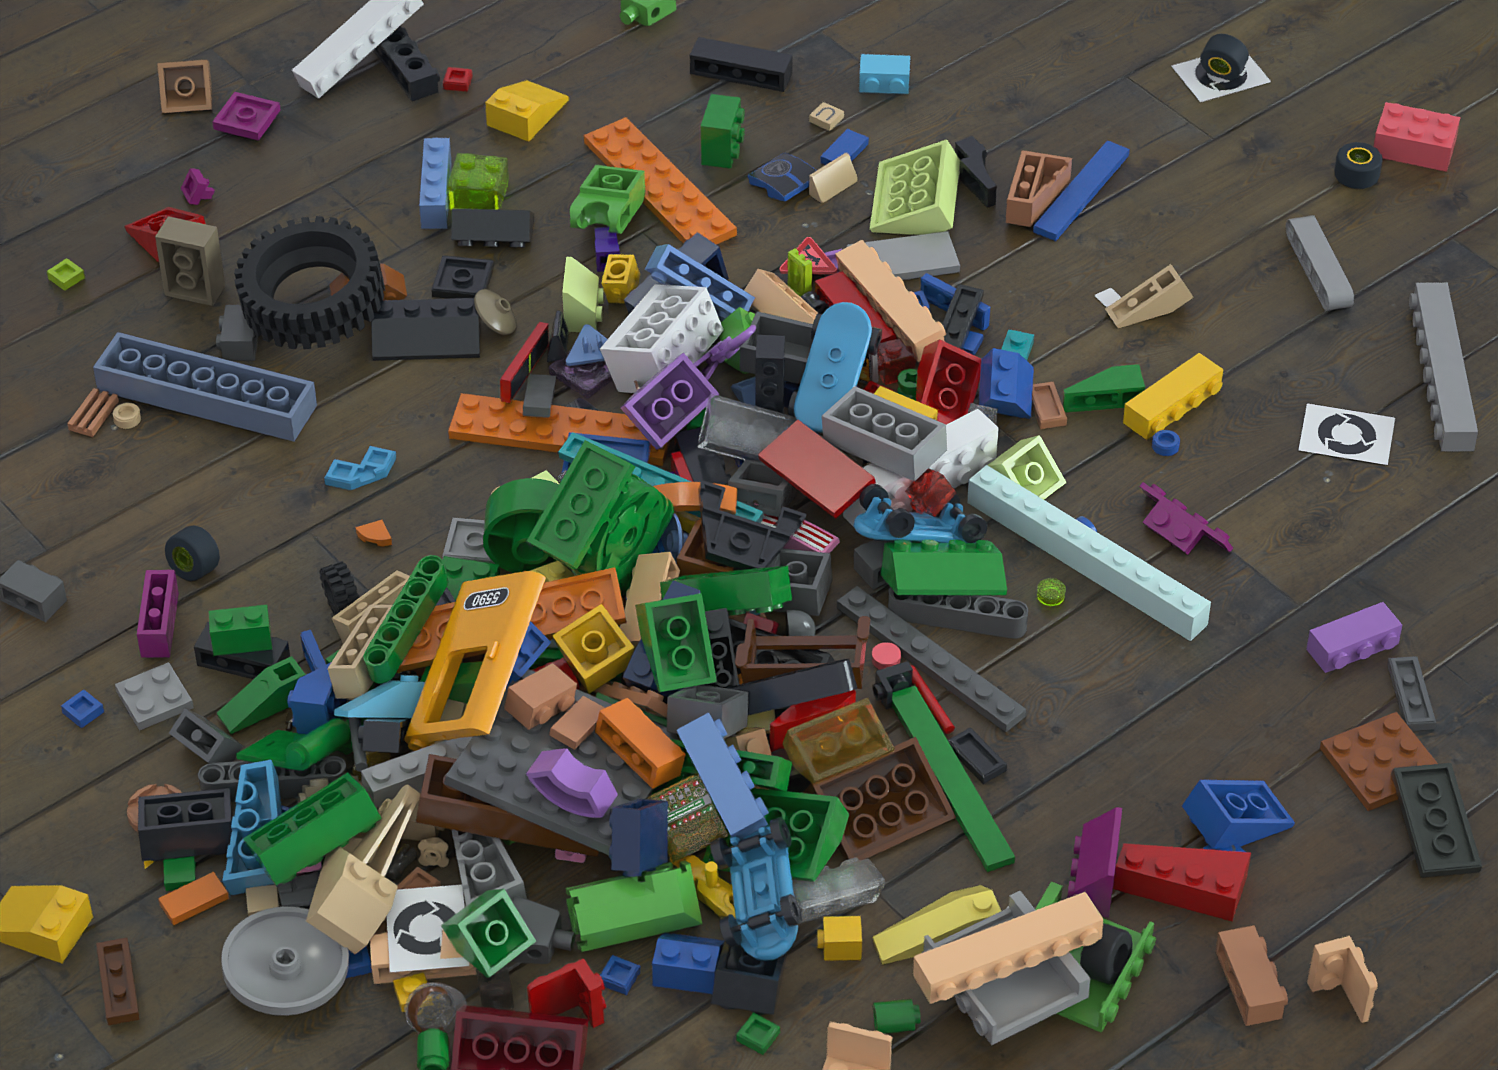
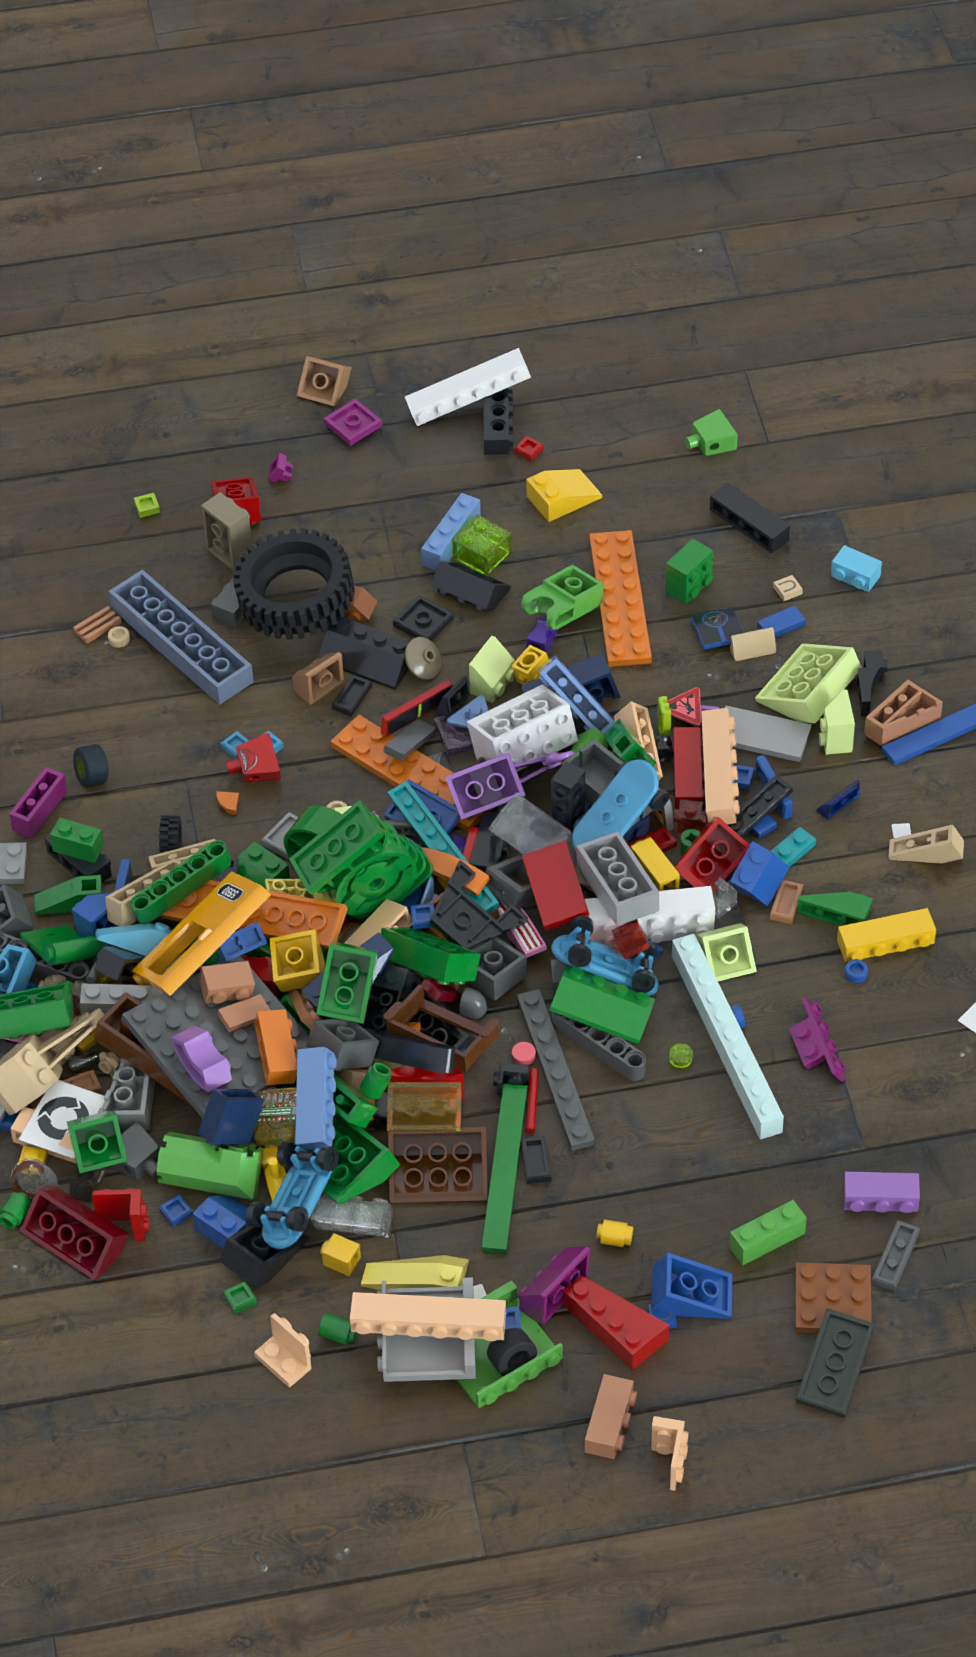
camera: 30 degrees right, 5 degrees up
(382, 478) = (256, 760): none -> red torso
(392, 371) = (319, 678): none -> medium nougat slope
(437, 379) = (351, 695): none -> black tile
(690, 556) = (421, 915): none -> blue tile
(774, 733) = (375, 1081): none -> green brick
(787, 305) = (626, 743): none -> green slope
(983, 219) = (837, 725): none -> yellowish green slope
(1028, 290) = (839, 800): none -> clear blue slope
(1118, 791) = (615, 1233): none -> yellow brick
(1273, 723) = (767, 1232): none -> bright green brick

